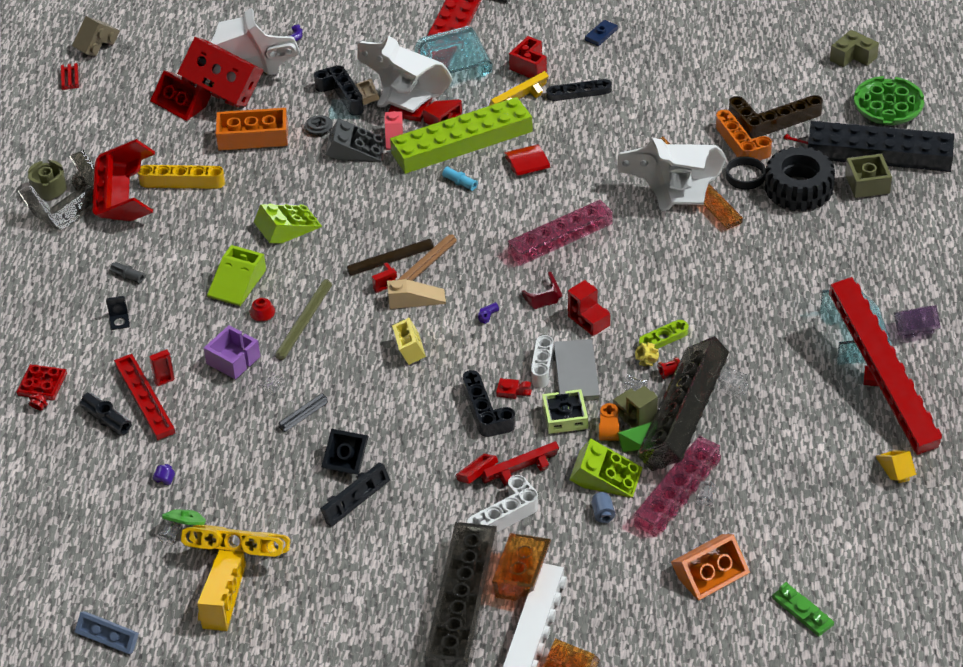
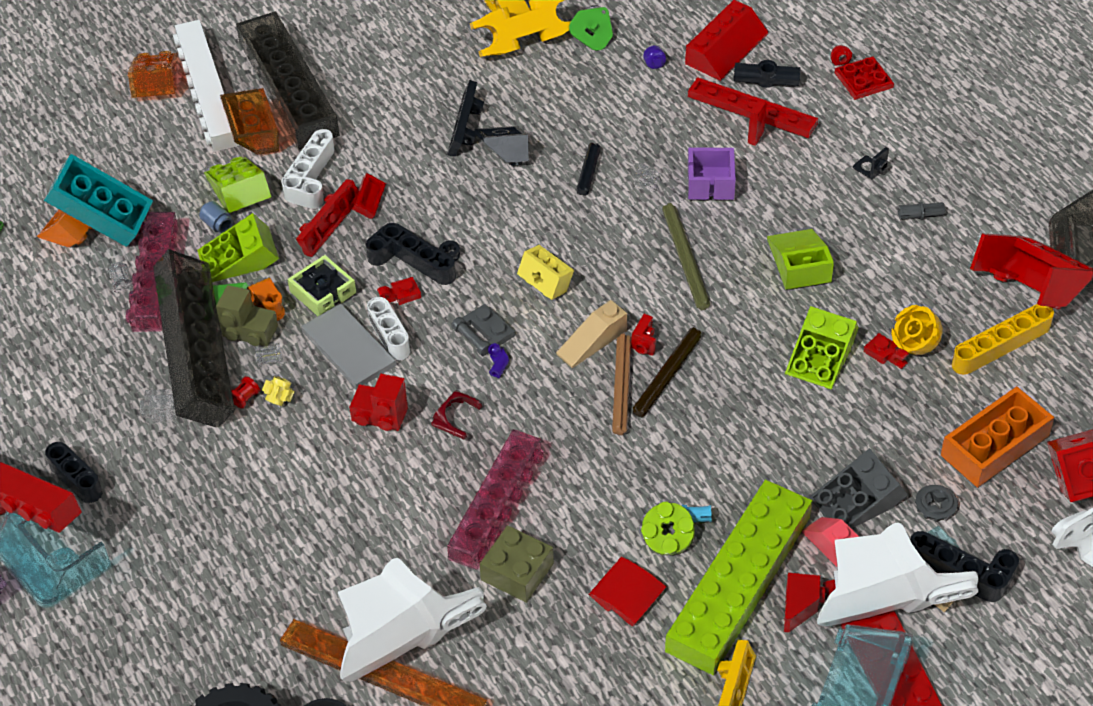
camera: 145 degrees right, 5 degrees up
(102, 460) = (725, 41): none -> red slope
(226, 194) = (917, 330): none -> yellow cylinder
(251, 207) = (885, 350): none -> red plate
(262, 310) = (737, 242): red cone -> none
(452, 404) = (451, 245): none -> black bush
(473, 339) = (488, 324): none -> dark grey plate
(478, 171) = (665, 514): none -> lime plate
(568, 529) = (238, 183): none -> lime slope
(577, 191) = (516, 563): none -> olive brick
(668, 330) = (276, 423): lime beam -> none
(692, 531) = (98, 200): none -> teal brick
(816, 368) = (73, 472): none -> black beam

